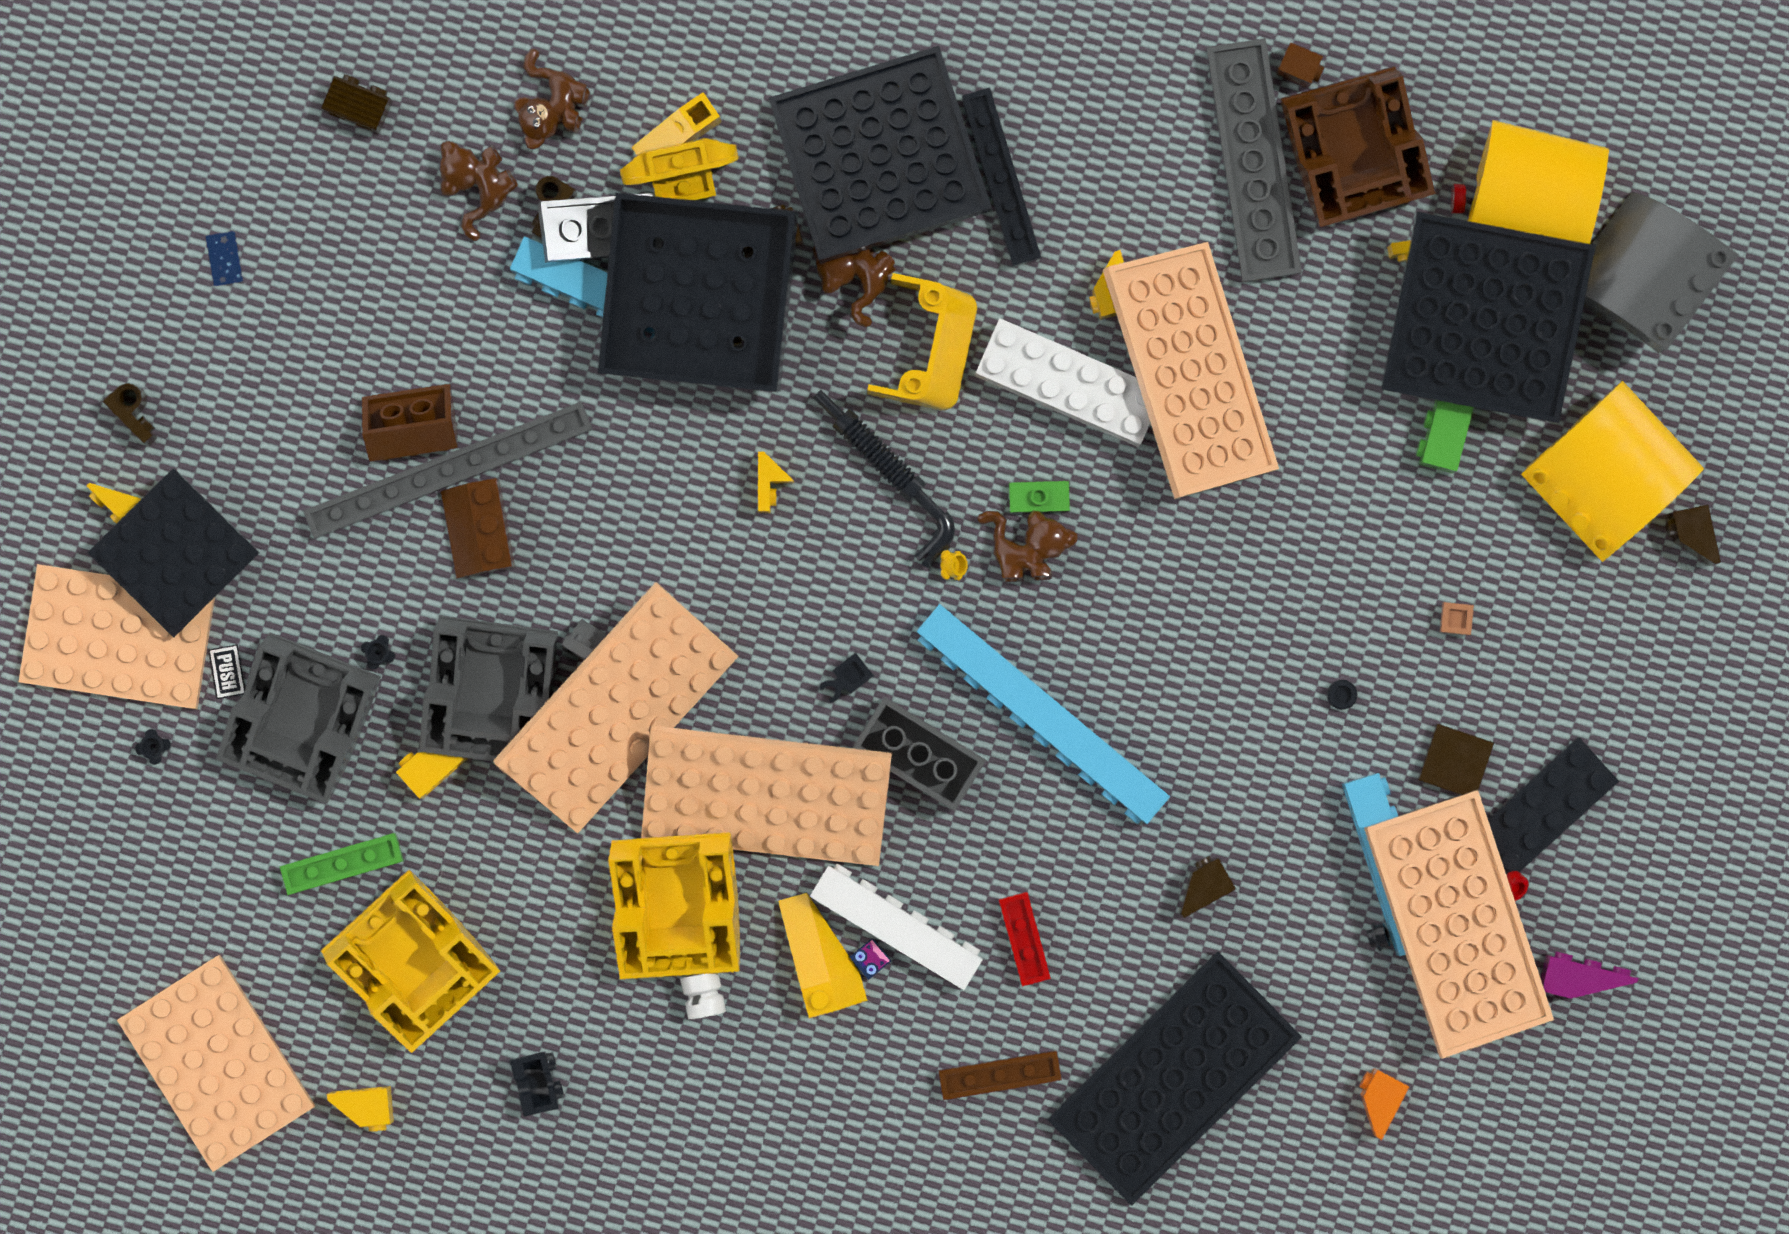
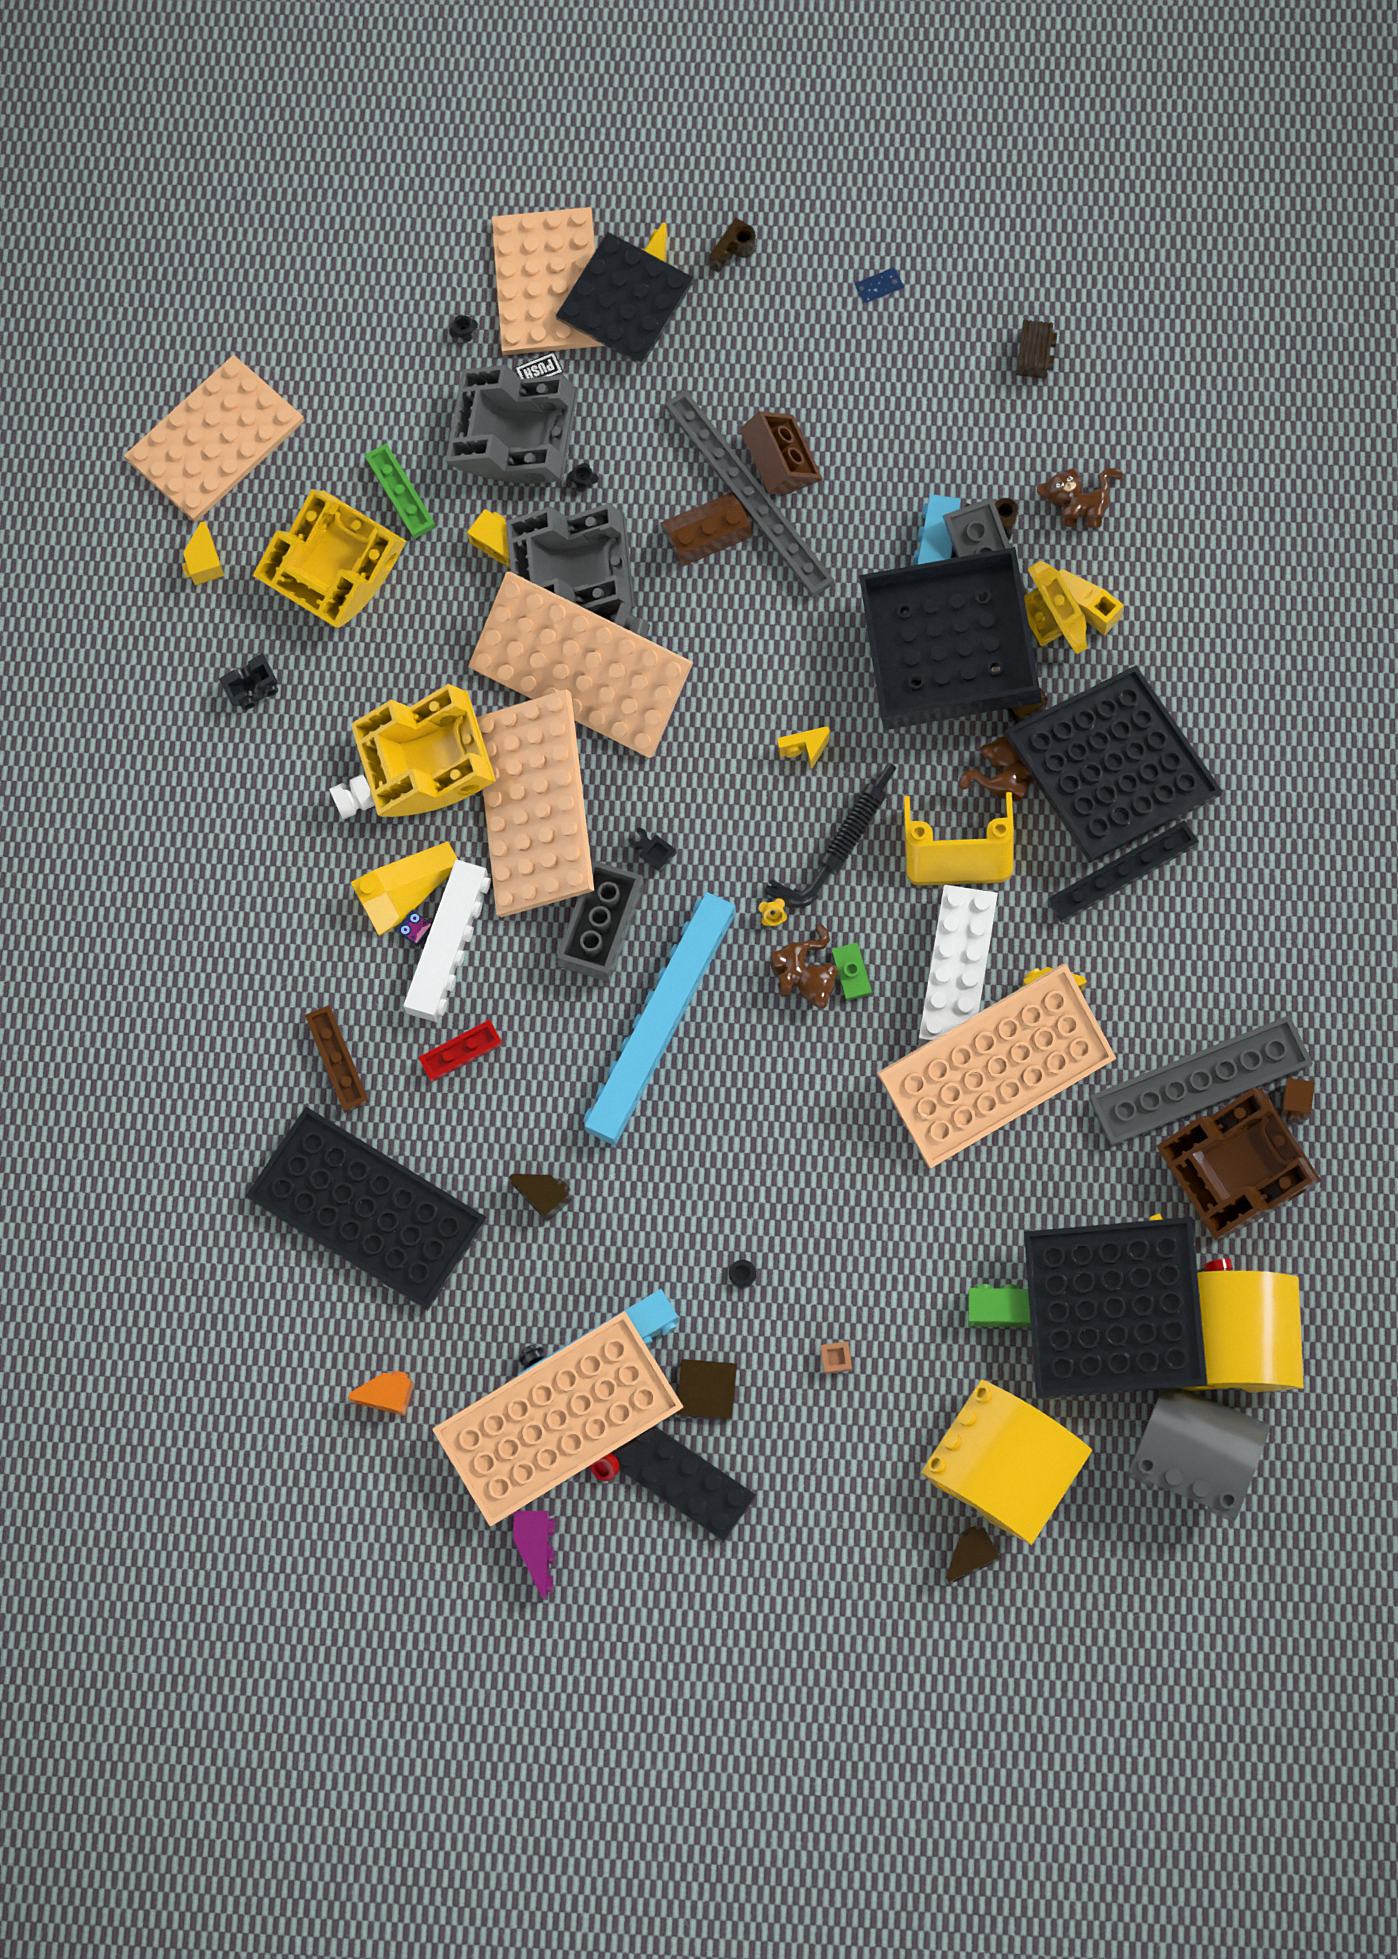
camera: 80 degrees right, 15 degrees down
(463, 170) = (1003, 442): reddish brown animal -> none

